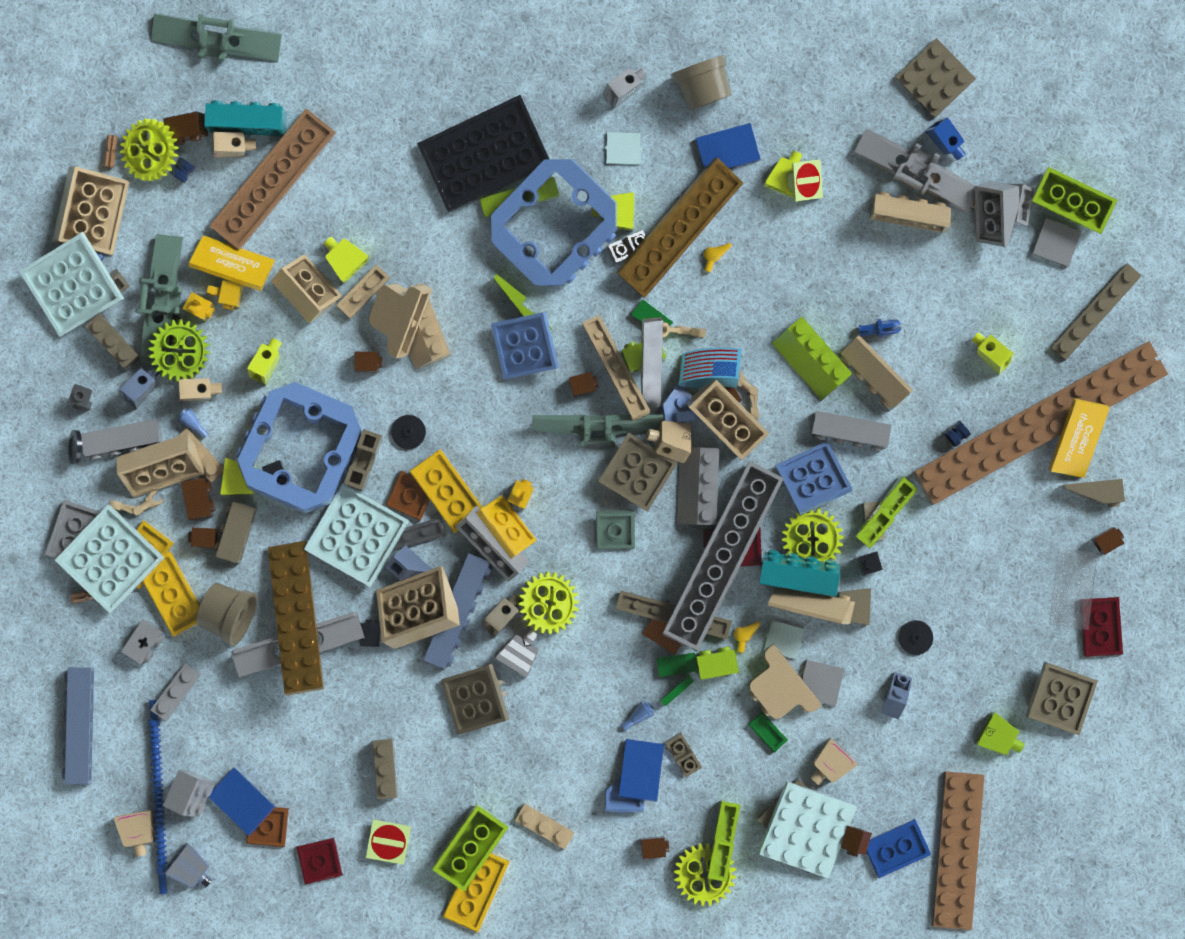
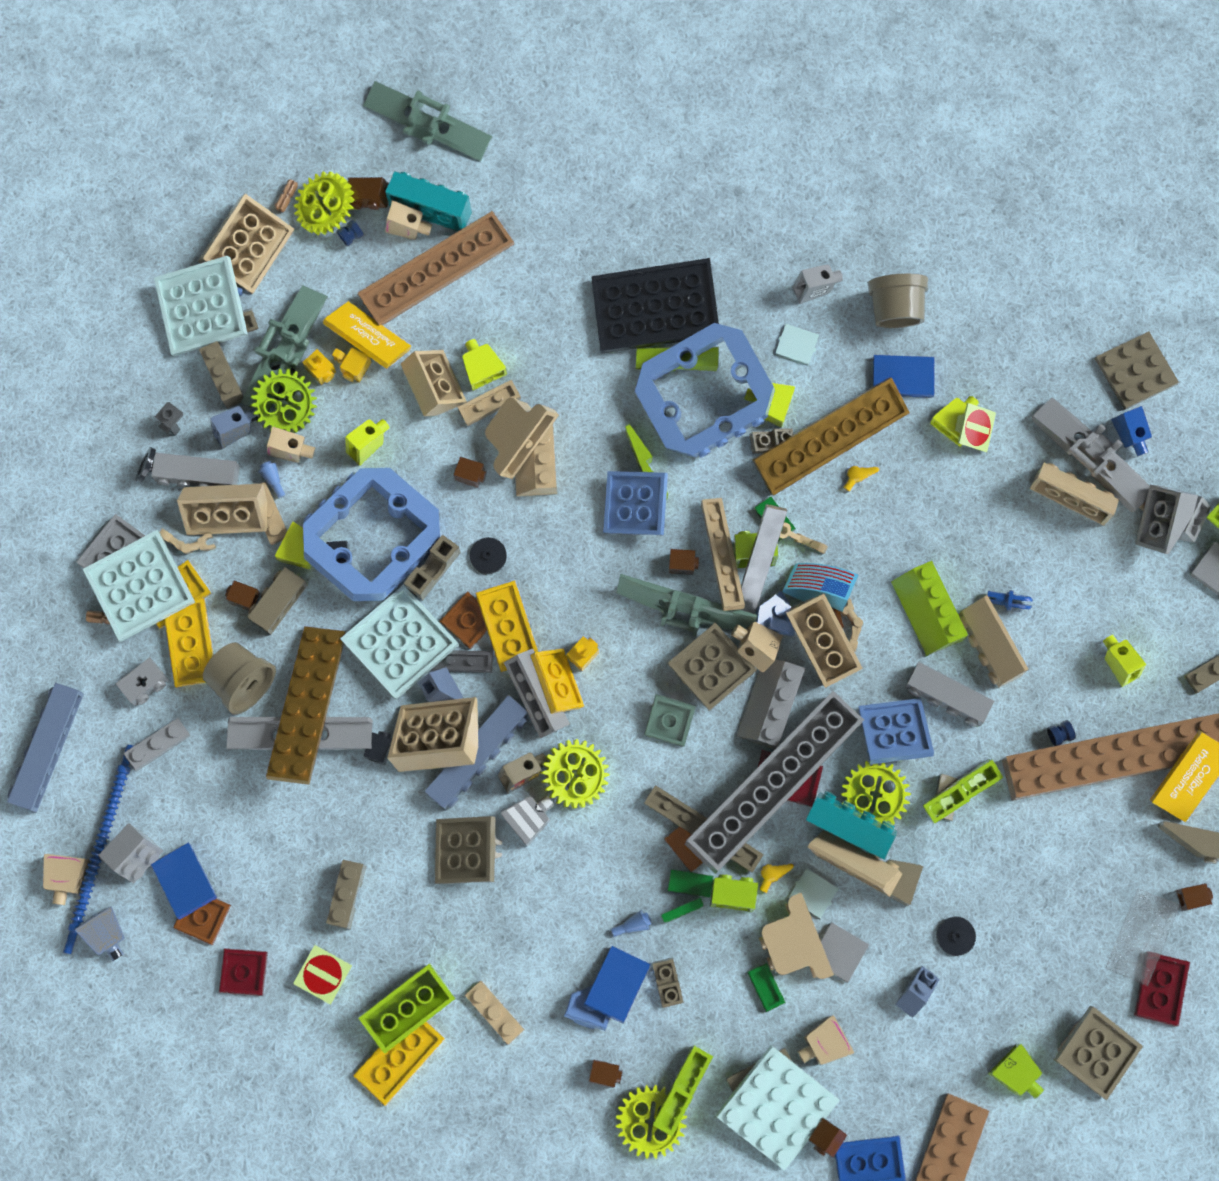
camera: 20 degrees right, 10 degrees down
(198, 499) = (250, 555): reddish brown brick -> none
(869, 563) = (929, 839): black brick -> none

